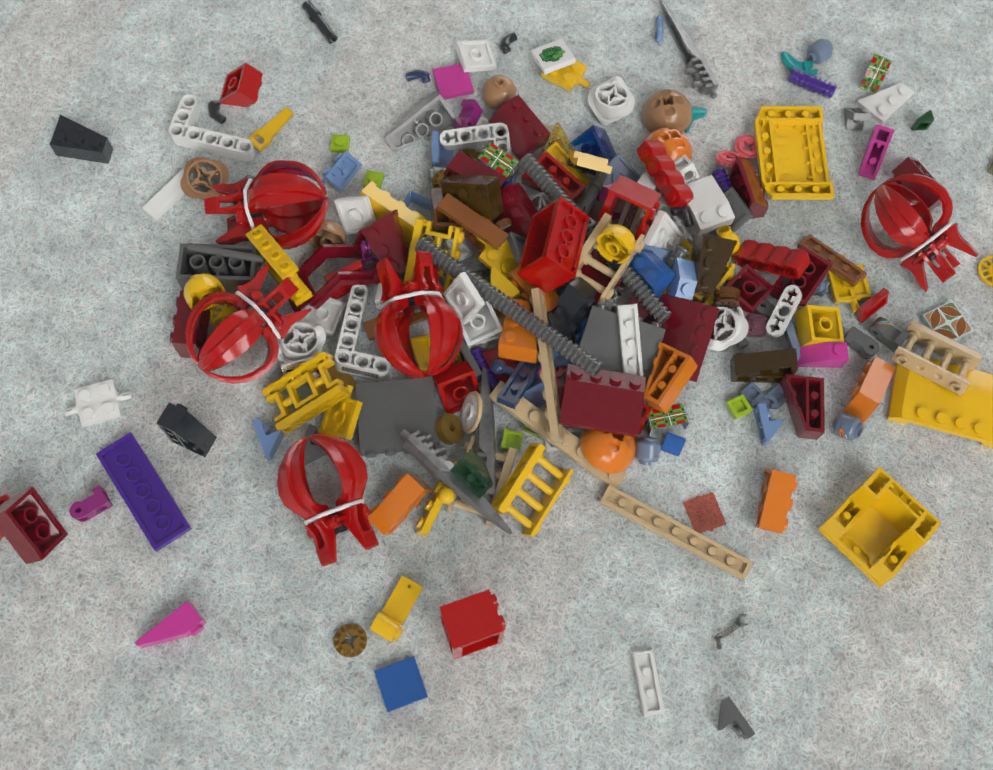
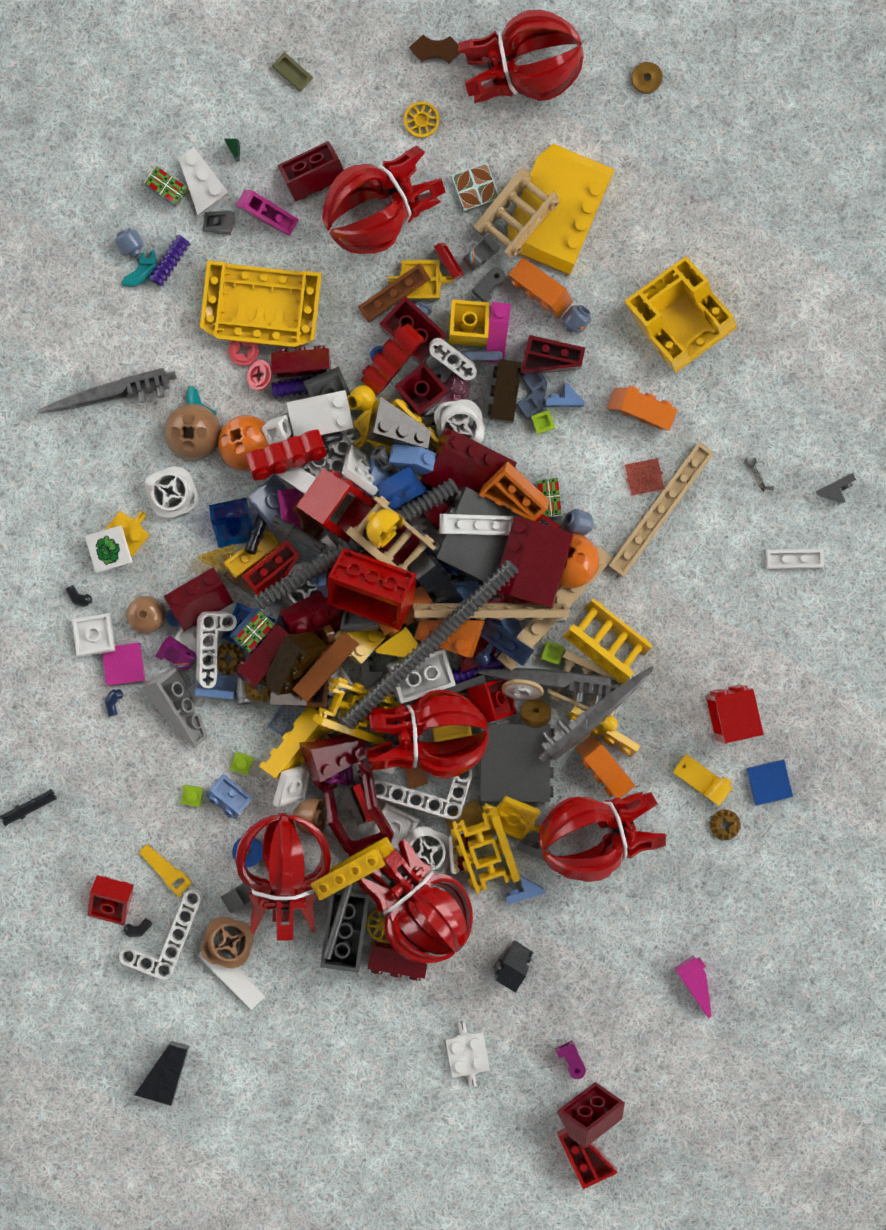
camera: 80 degrees left, 20 degrees up
(143, 492) = (562, 1010): dark purple plate -> none
(199, 287) = (377, 946): yellow cylinder -> none
(464, 298) = (414, 685): white tile -> none
(473, 473) = (593, 697): clear green slope -> none
(590, 161) = (263, 532): yellow slope -> none
(659, 29) = (84, 421): medium blue piece -> none
(673, 444) = (574, 495): blue slope -> none
(726, 297) = (435, 417): reddish brown wheel -> none

